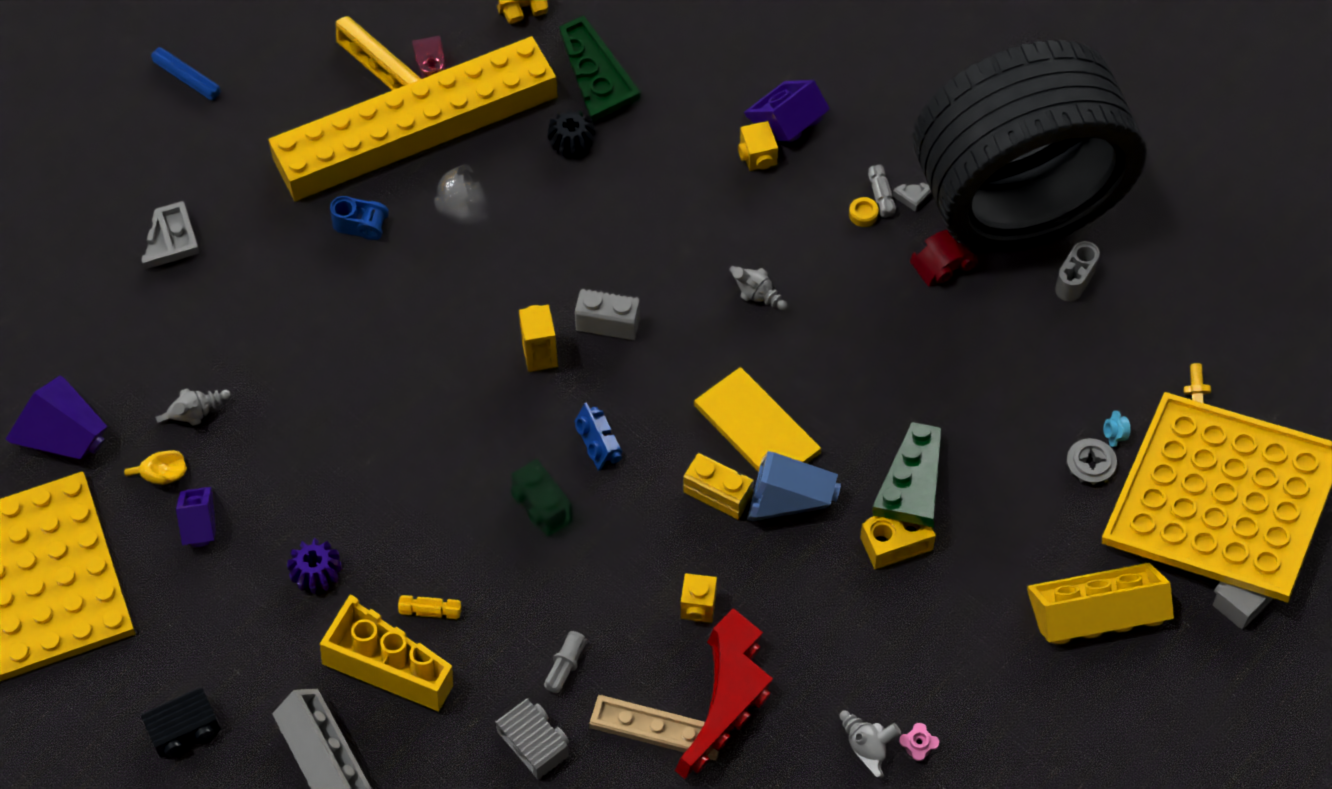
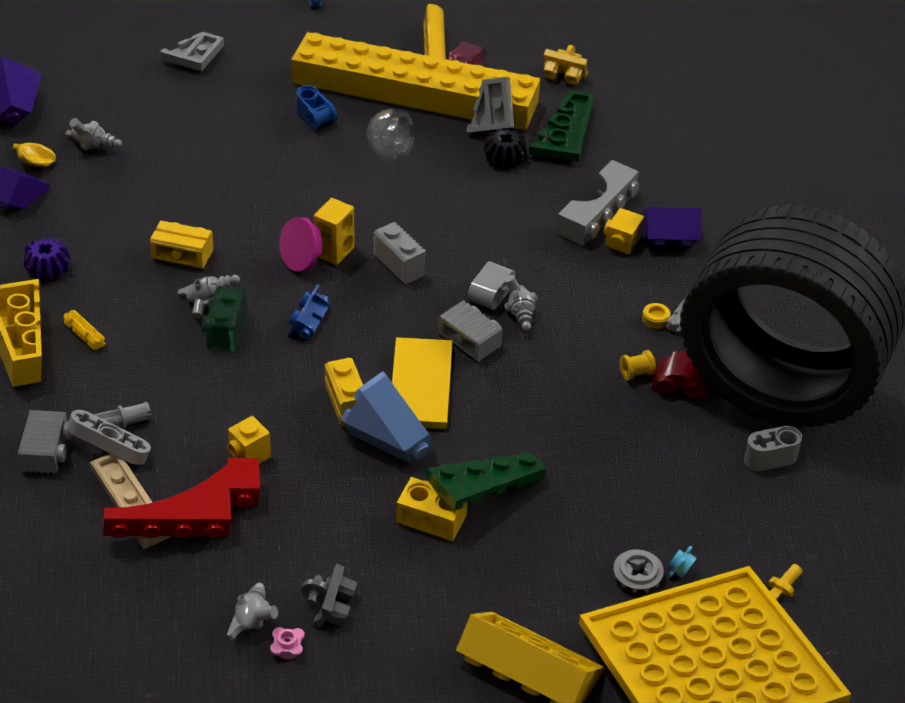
camera: 40 degrees right, 15 degrees down
(413, 454) = (181, 244): none -> yellow brick
(494, 485) = (204, 289): none -> light grey piece
(523, 374) = (300, 244): none -> dark pink tile
(527, 100) = (493, 106): none -> light grey wing
(563, 693) = (108, 437): none -> light grey beam
(713, 159) = (583, 219): none -> light grey arch
(713, 286) = (489, 285): none -> light grey beam
(745, 345) = (470, 330): none -> light grey brick
(903, 274) = (637, 365): none -> yellow bush
(907, 679) = (325, 593): none -> dark grey hips

